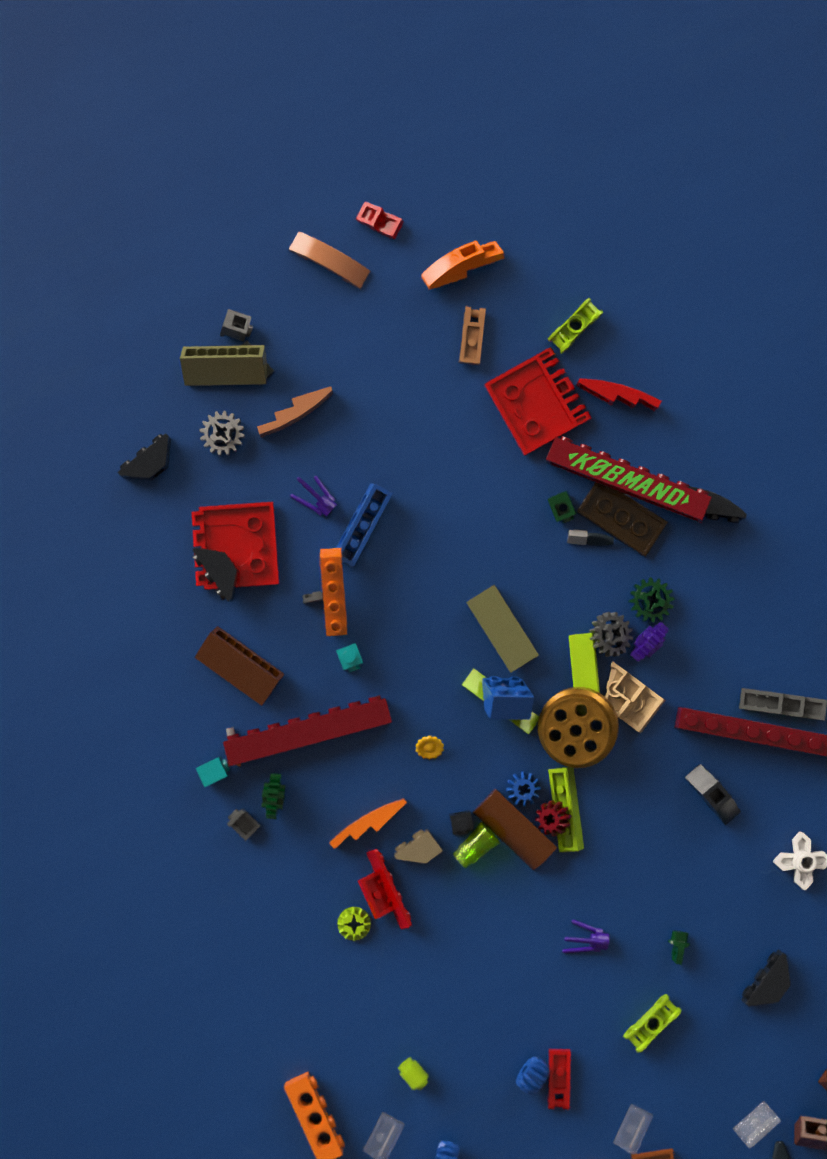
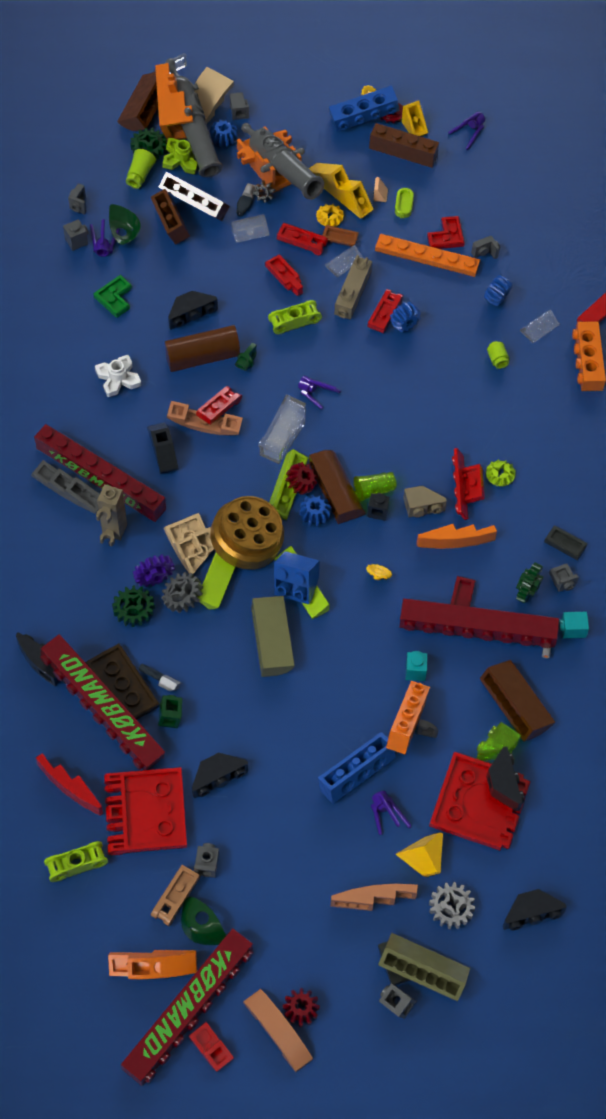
camera: 150 degrees left, 25 degrees down
(238, 612) = (498, 738): none -> clear neon green slope
(256, 869) = (565, 542): none -> pearl dark grey tile
(266, 472) = (424, 855): none -> yellow slope
(317, 277) = (304, 1000): none -> dark red gear
(337, 759) = (463, 591): none -> dark red tile
(414, 242) = (187, 1007): none -> dark red brick
(450, 327) = (205, 934): none -> dark green piece
(456, 370) = (207, 867): none -> dark grey brick
(489, 465) = (217, 772): none -> black slope
(598, 867) = (283, 429): none -> clear wedge
(606, 1092) = (353, 287): none -> dark tan brick
(679, 869) = (218, 405): none -> red plate
(686, 846) = (187, 417): none -> nougat slope
(690, 1078) = (285, 274): none -> red hinge
(694, 1137) = (302, 238): none -> red plate
(720, 676) = (111, 514): none -> dark tan brick
(730, 932) = (202, 348): none -> reddish brown brick

